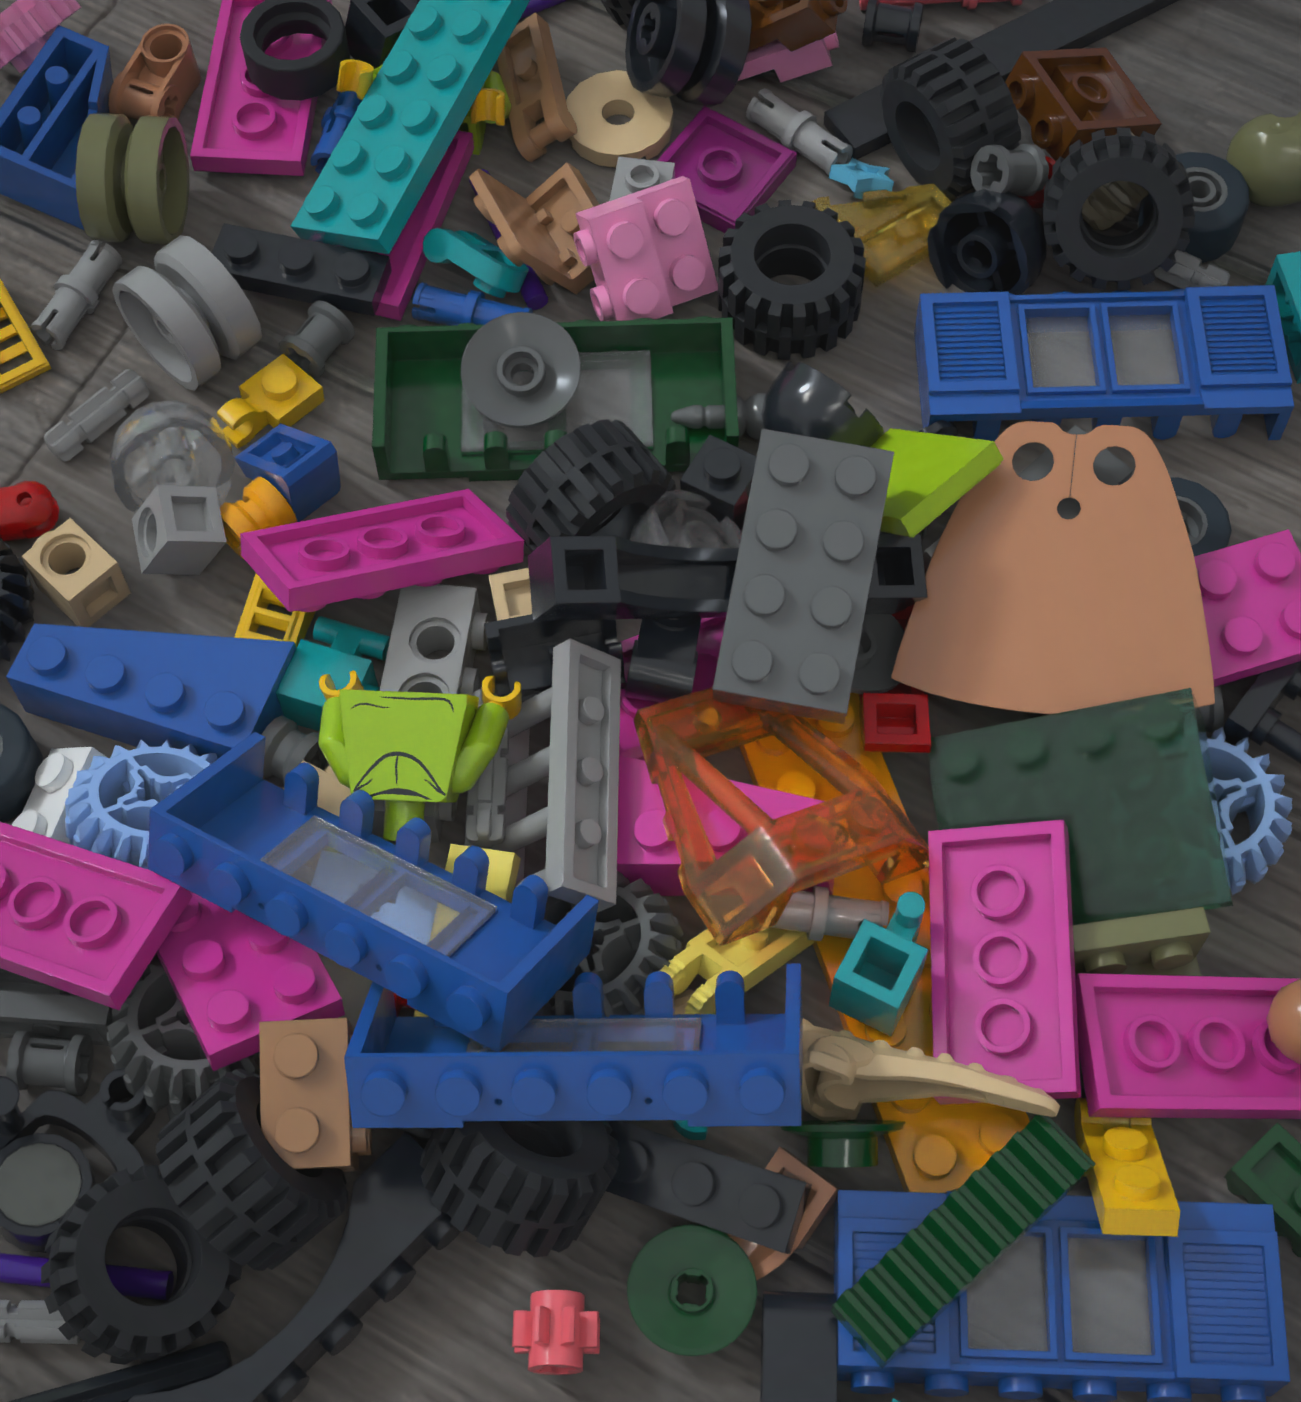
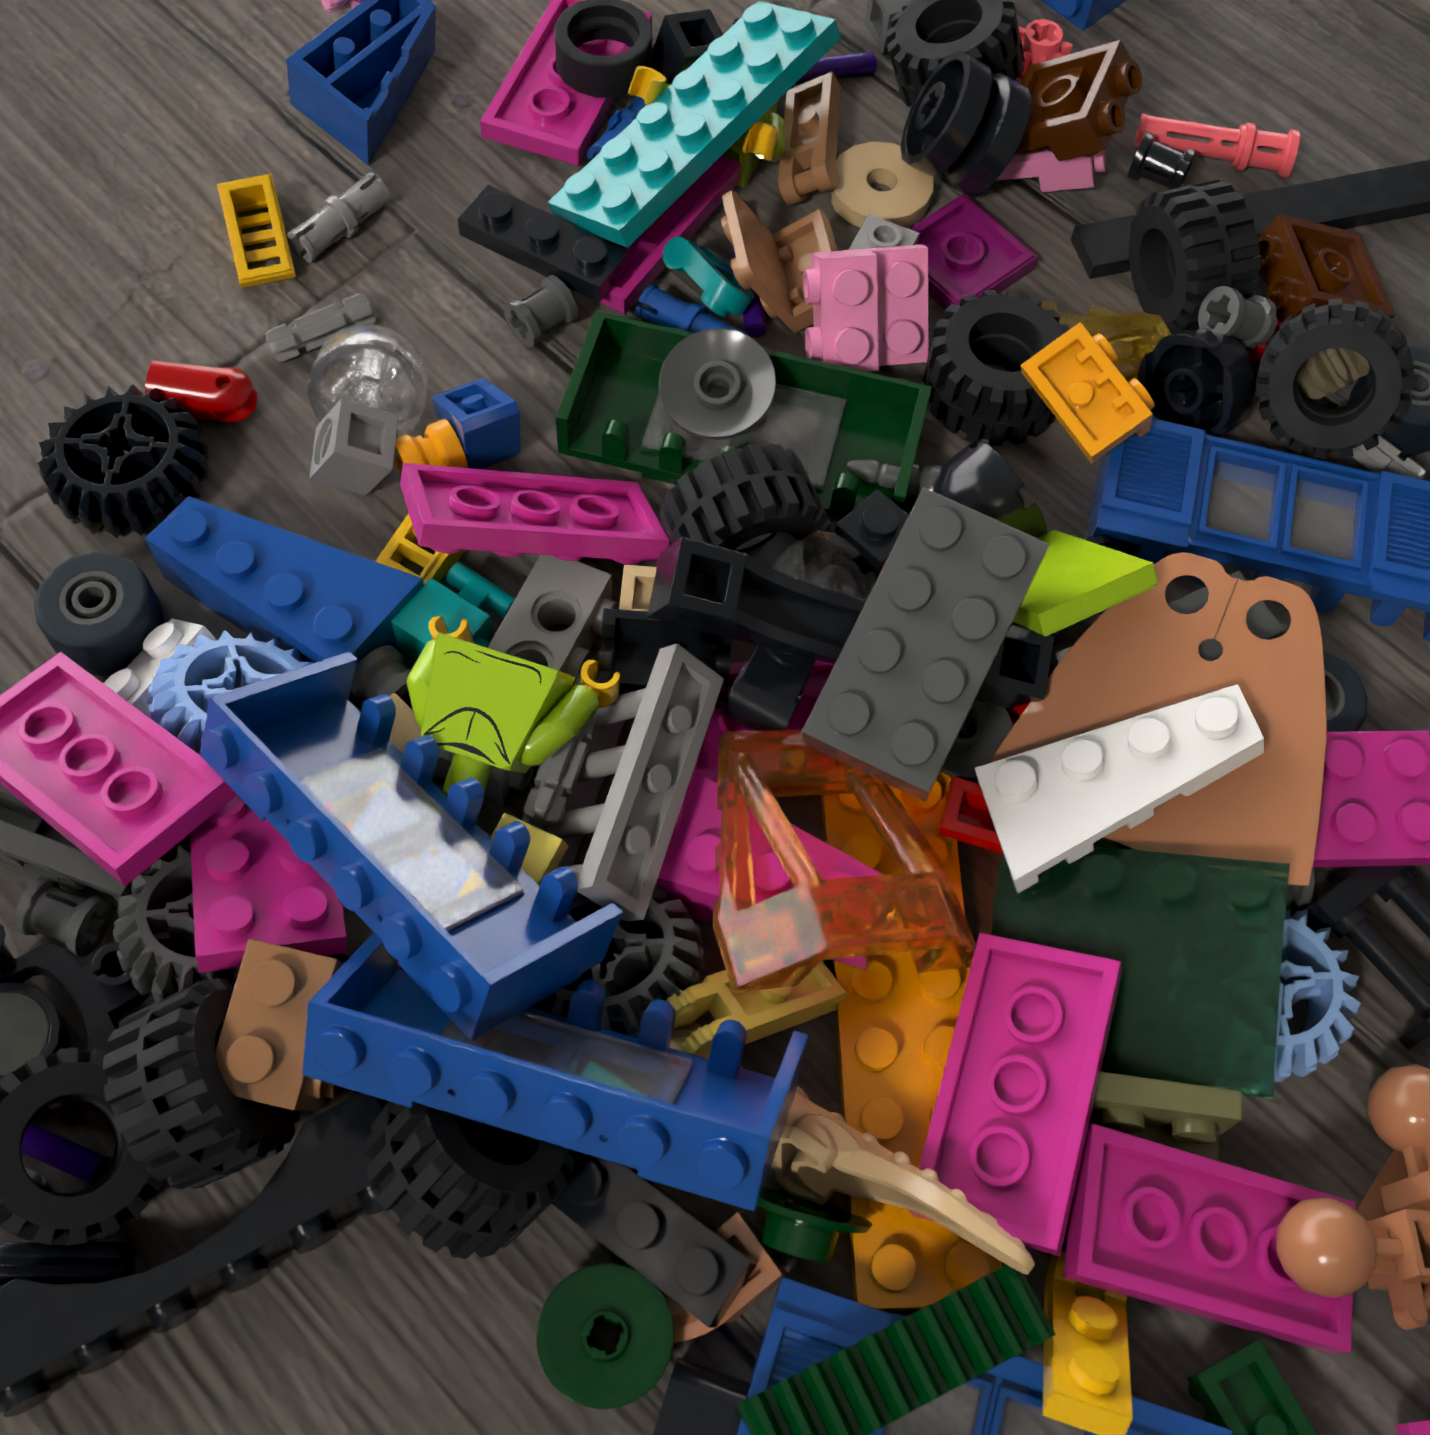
camera: 10 degrees right, 0 degrees up
(82, 594) = (250, 463): tan brick -> none
(132, 178) = (418, 124): olive wheel -> none
(157, 76) = (478, 47): nougat piece -> none
(187, 312) = (428, 253): light grey wheel -> none
(271, 397) = (485, 351): yellow plate -> none
(556, 1332) = (455, 1338): coral gear -> none
(798, 131) = (1046, 239): light grey pin -> none
(830, 914) = (862, 991): light grey pin -> none
(861, 177) = (1092, 293): medium azure piece -> none
(882, 968) = (893, 1059): teal brick -> none
(887, 285) = (1088, 392): none -> light orange bracket
(991, 666) = (1082, 788): none -> white wing

